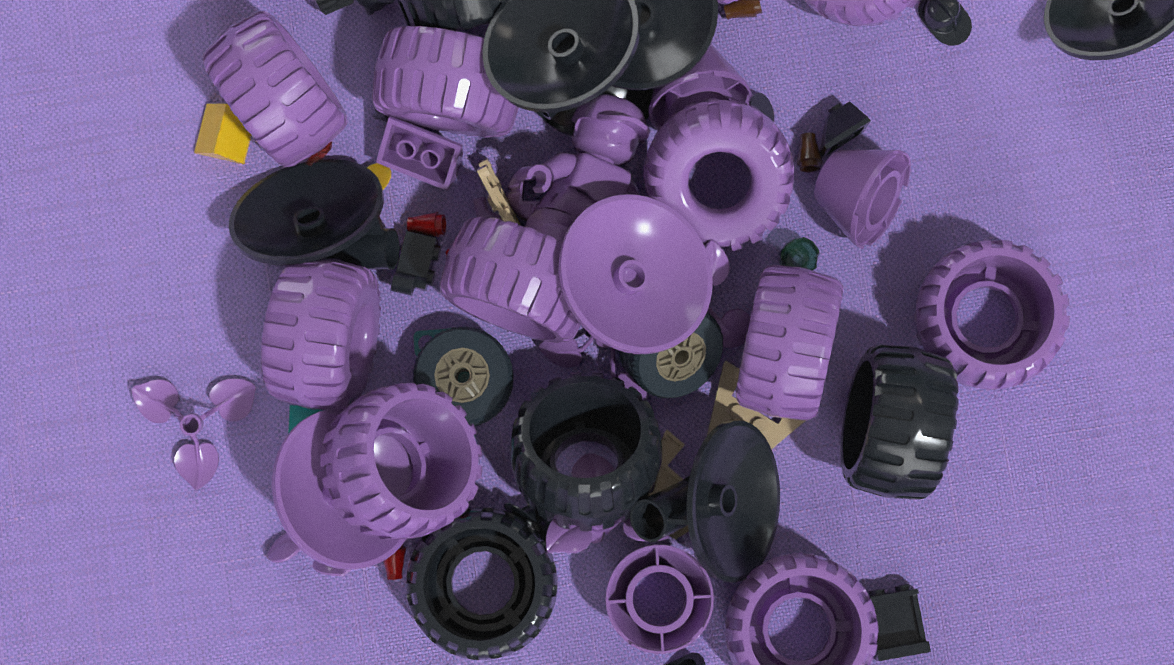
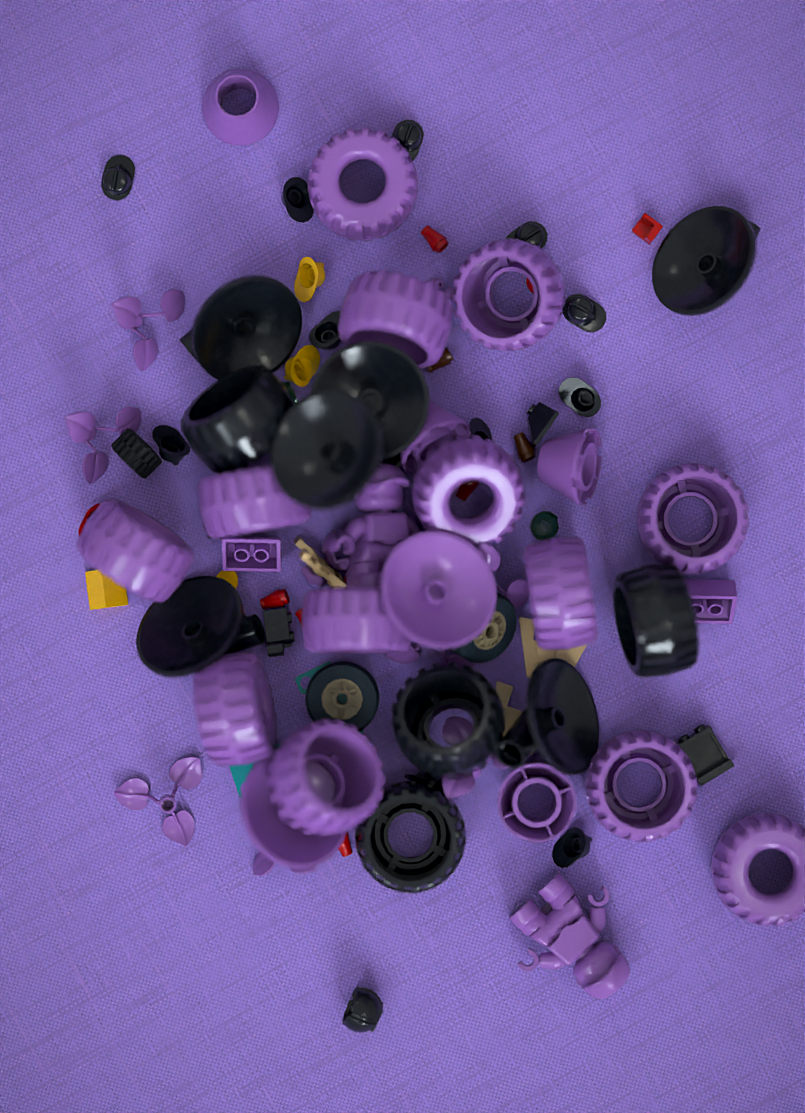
camera: 25 degrees left, 5 degrees up
(721, 173) = (466, 489): none -> clear red cone
(903, 114) = (580, 396): none -> black piece
(981, 432) = (713, 600): none -> medium lavender slope

